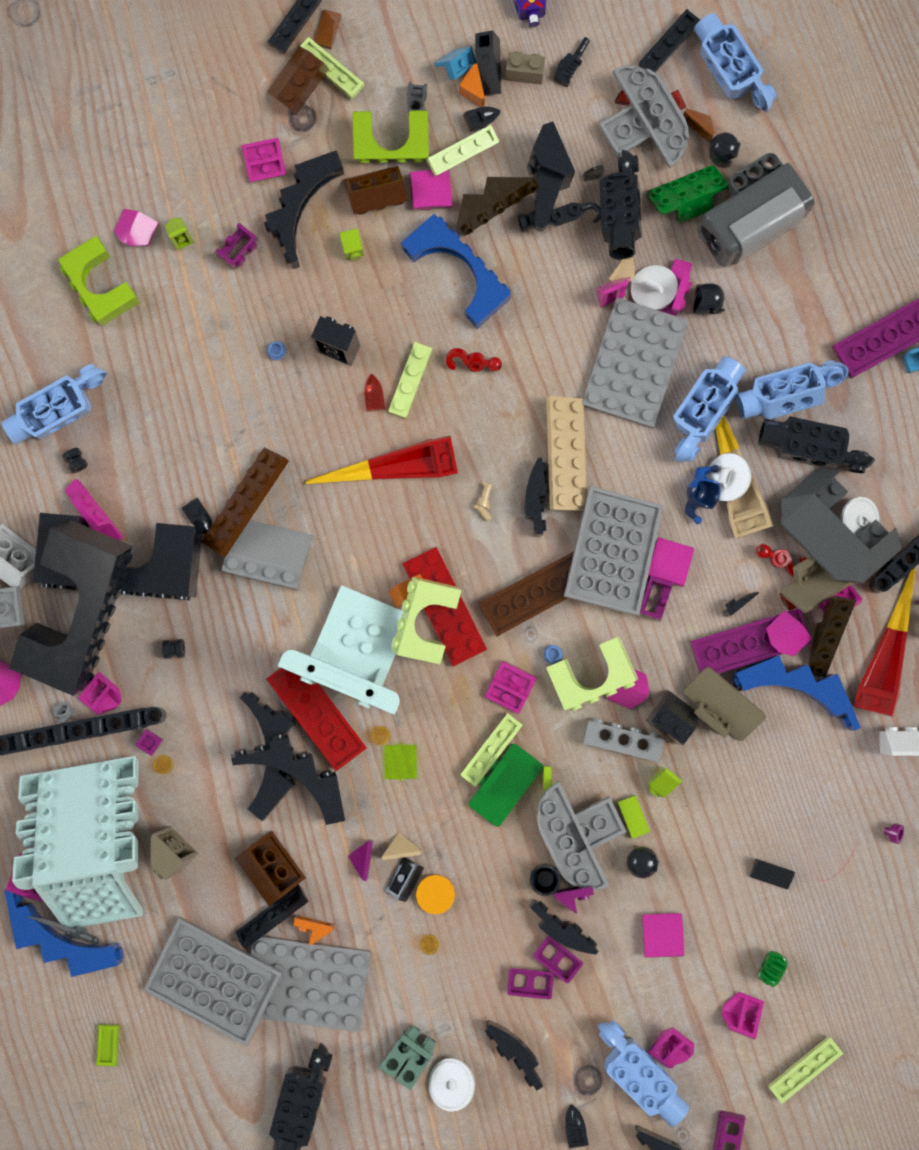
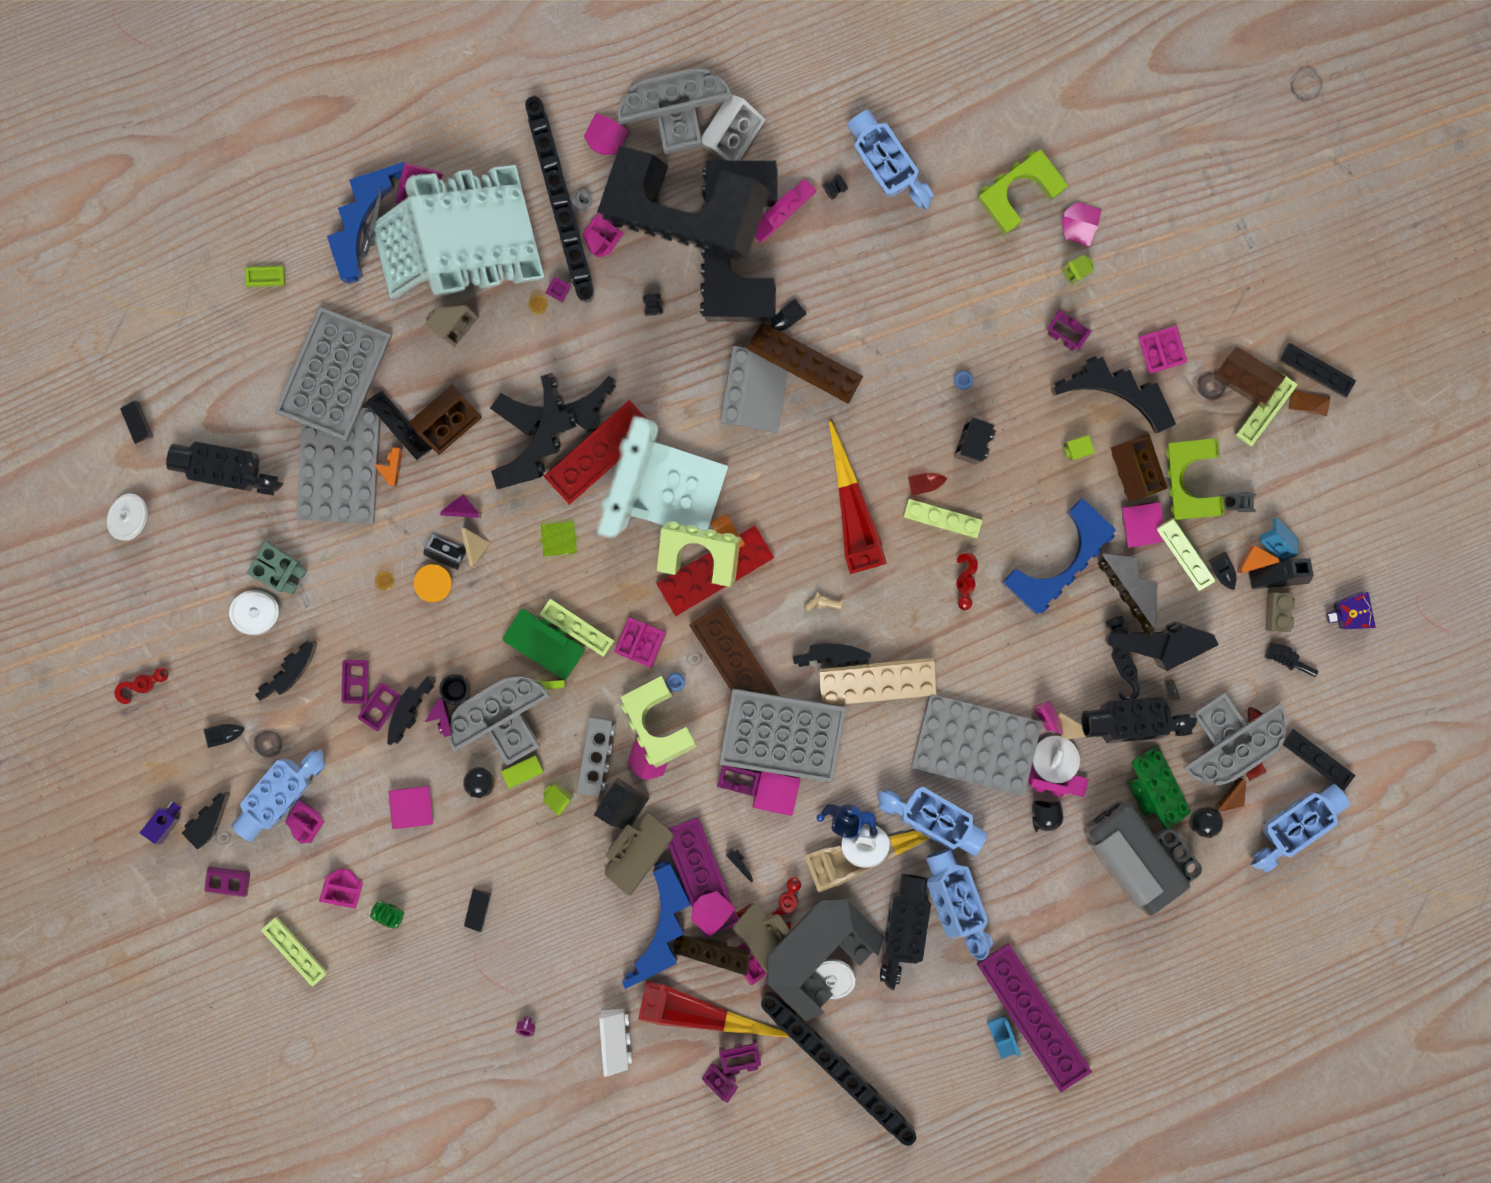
camera: 85 degrees right, 5 degrees up
(380, 735) = (583, 517): clear yellow plate -> none

